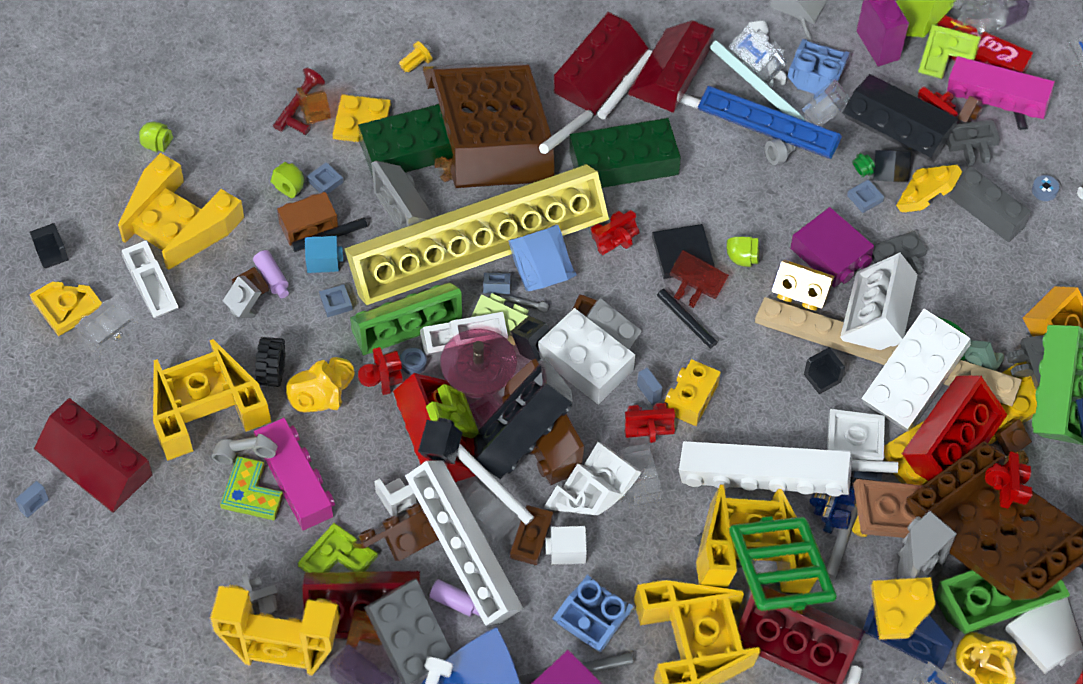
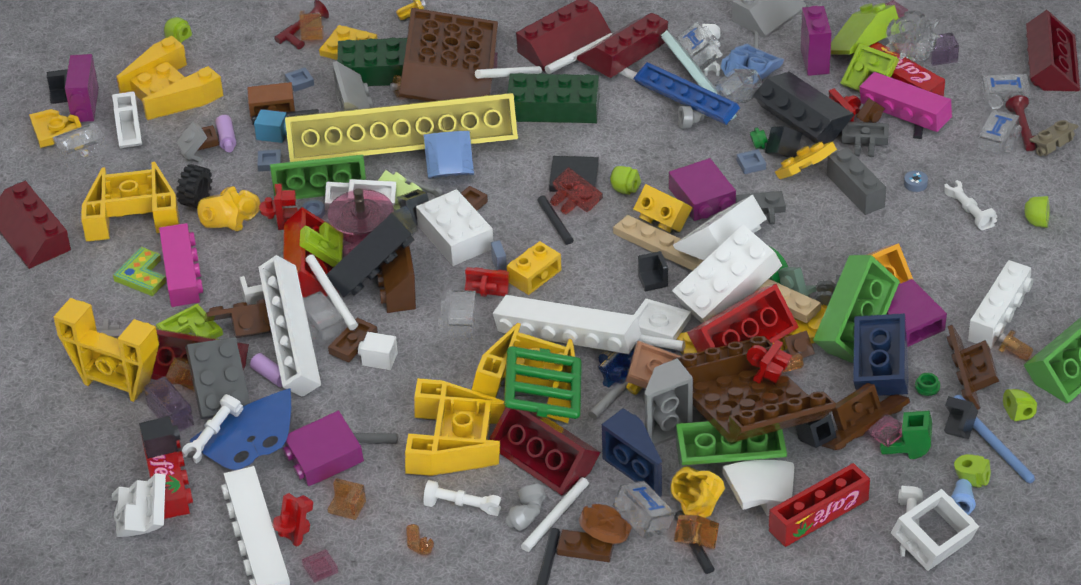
camera: 20 degrees right, 15 degrees down
(81, 247) = (82, 87): none -> magenta brick
(225, 450) = (135, 240): light grey bar -> none
(288, 179) = (268, 72): lime piece -> none
(440, 441) = (298, 249): black brick -> none
(496, 283) = (405, 168): sand blue tile -> none
(586, 614) = (376, 398): medium blue slope -> none
(595, 484) = (420, 312): white slope -> none
(614, 323) = (489, 210): light grey plate -> none
(616, 233) = (521, 150): red hips -> none
(901, 605) = (628, 424): yellow plate -> none

